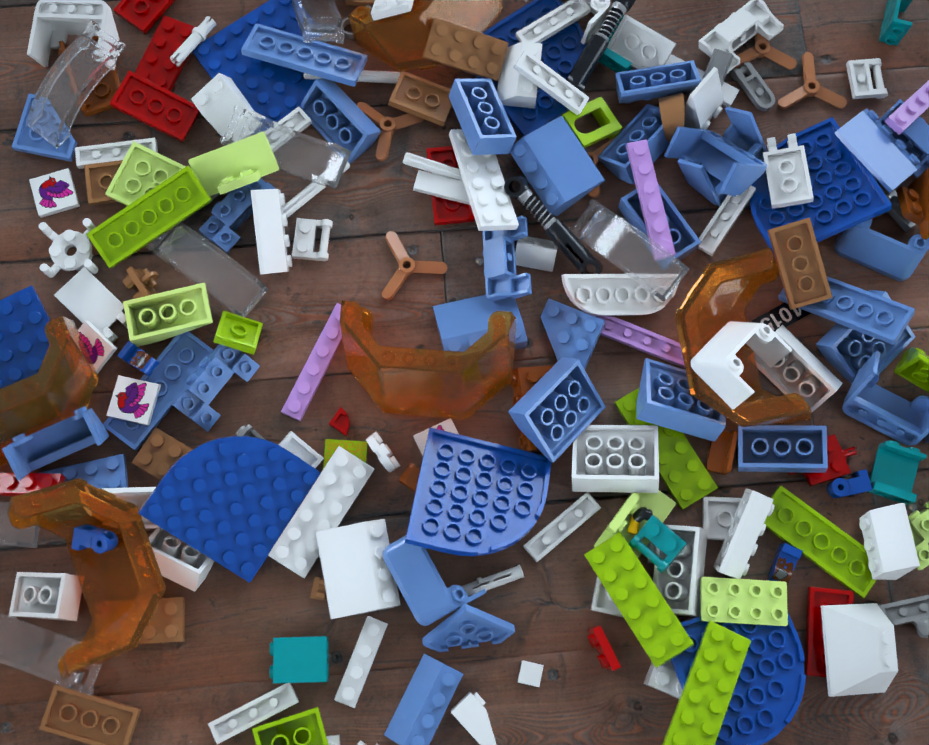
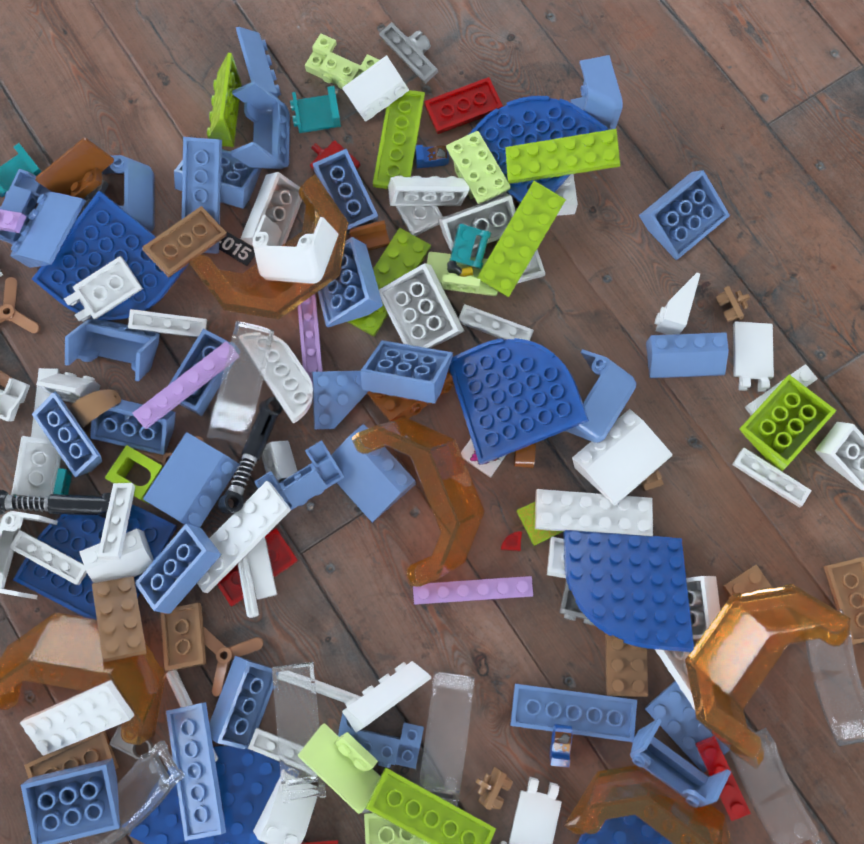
camera: 115 degrees left, 0 degrees up
(46, 596) = (793, 697): white slope -> none
(93, 537) = (730, 679): blue leg -> none
(96, 344) = (569, 793): white tile -> none
(133, 400) = (598, 726): white tile -> none
(167, 314) = (508, 743): yellowish green slope -> none
(209, 380) = (543, 671): medium blue bracket -> none
(238, 332) = (489, 671): lime plate -> none
(299, 659) = (714, 463): teal panel -> none
(305, 239) = (370, 667): white plate -> none
(361, 662) = (685, 419): white plate -> none
(383, 452) = (519, 491): white plate -> none
(402, 273) = (344, 554): nougat piece -> none
(467, 629) = (616, 350): medium blue plate -> none
(515, 572) = (574, 359): white pin -> none
(530, 673) = (617, 293): white tile -> none
(606, 654) = (571, 246): red plate -> none
(718, 156) = (116, 349): medium blue windscreen -> none
(721, 61) = (24, 392): light grey piece -> none
(754, 86) = (29, 357): light grey plate -> none
(841, 488) = (344, 135): blue leg -> none
(858, 649) = (463, 79): white slope -> none

